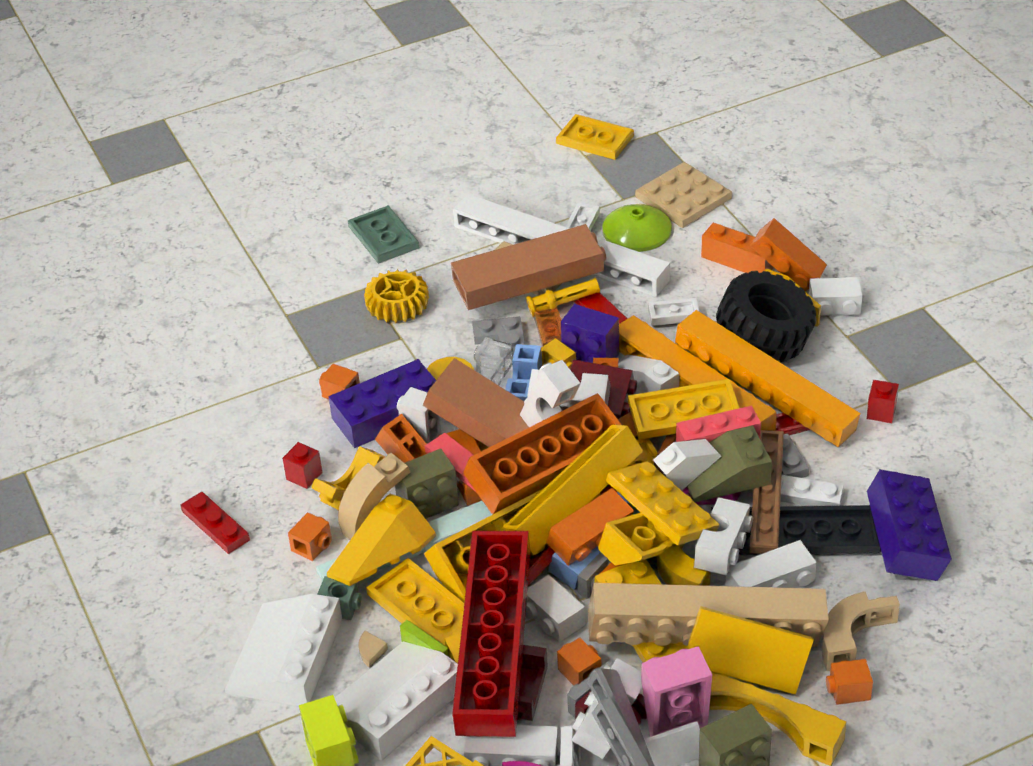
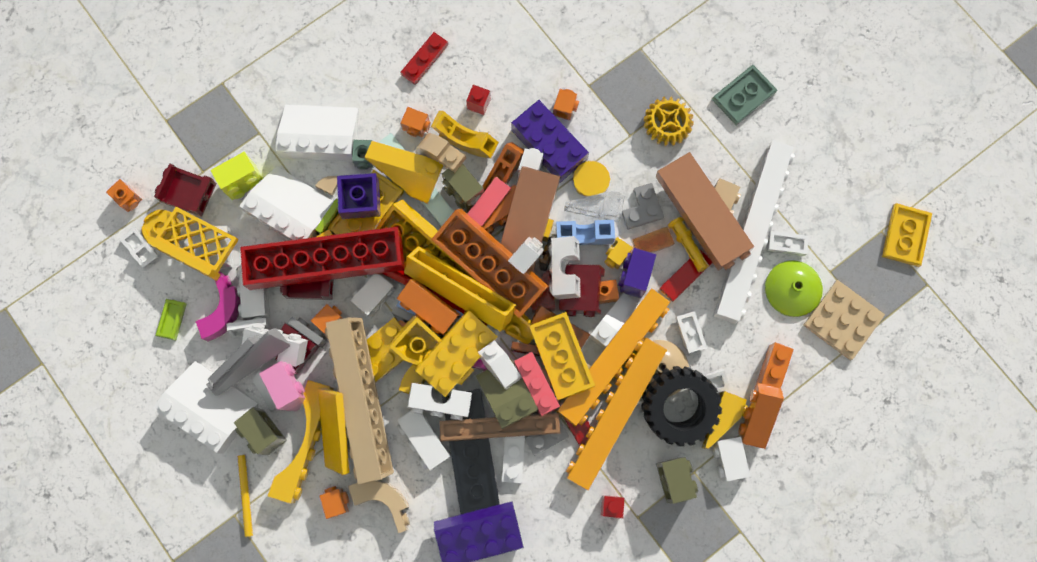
camera: 75 degrees right, 35 degrees up
(407, 590) = (358, 196): none -> dark purple brick
(856, 337) = (677, 480): none -> olive brick

